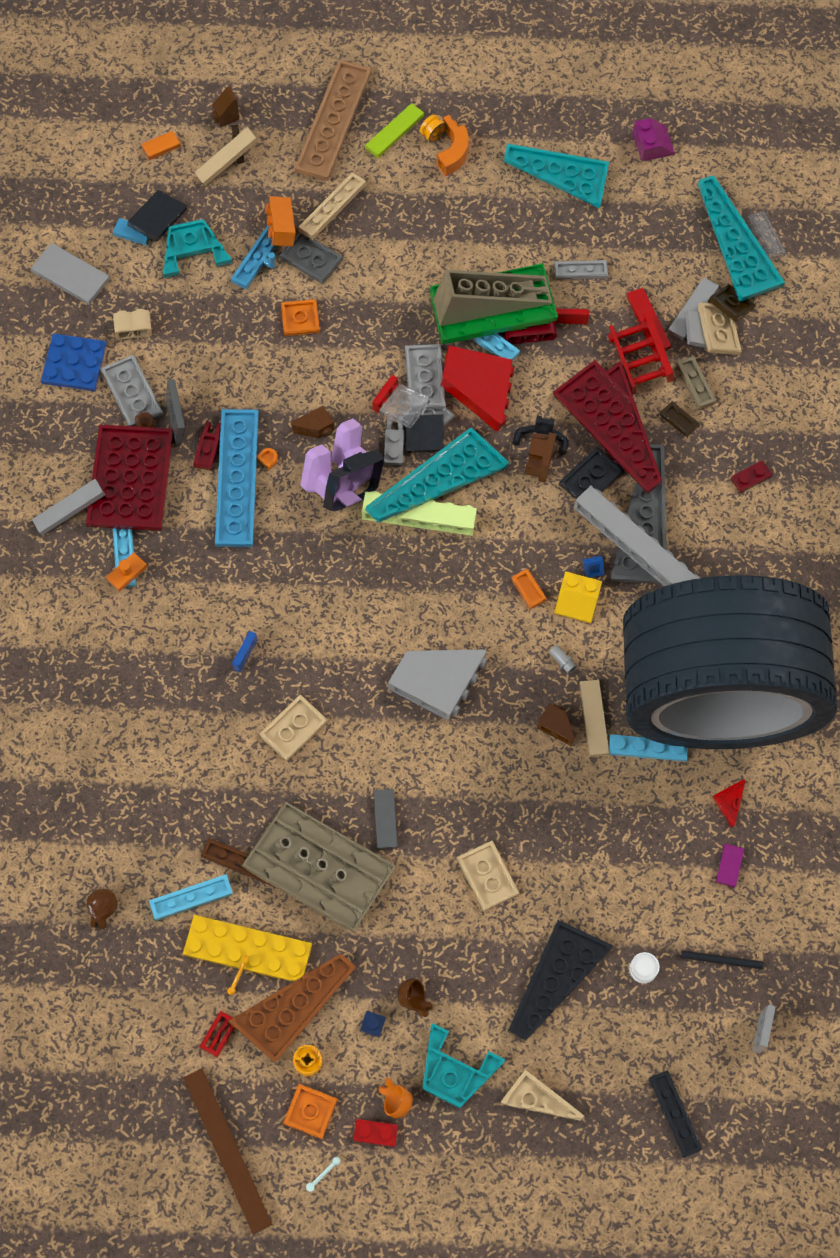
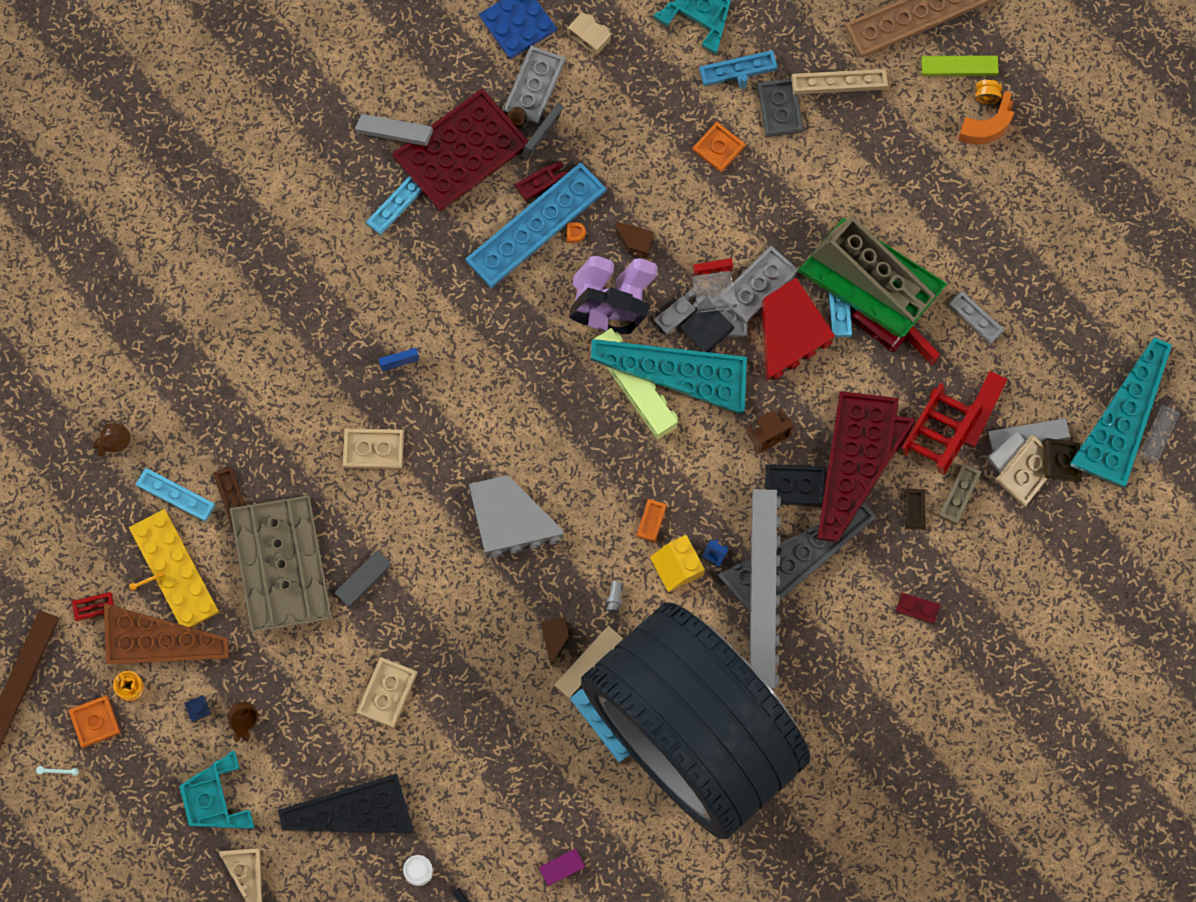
camera: 50 degrees right, 5 degrees up
(126, 571) = (382, 218): orange tile -> none
(280, 221) = (783, 56): orange brick -> none
(375, 1133) = (119, 781): red plate -> none
(397, 1099) = (154, 776): orange piece -> none
(542, 426) = (802, 411): black piece -> none
(569, 173) = (1057, 232): teal wing -> none
(652, 139) = (1158, 269): magenta slope -> none
(729, 801) = (615, 823): red tile -> none

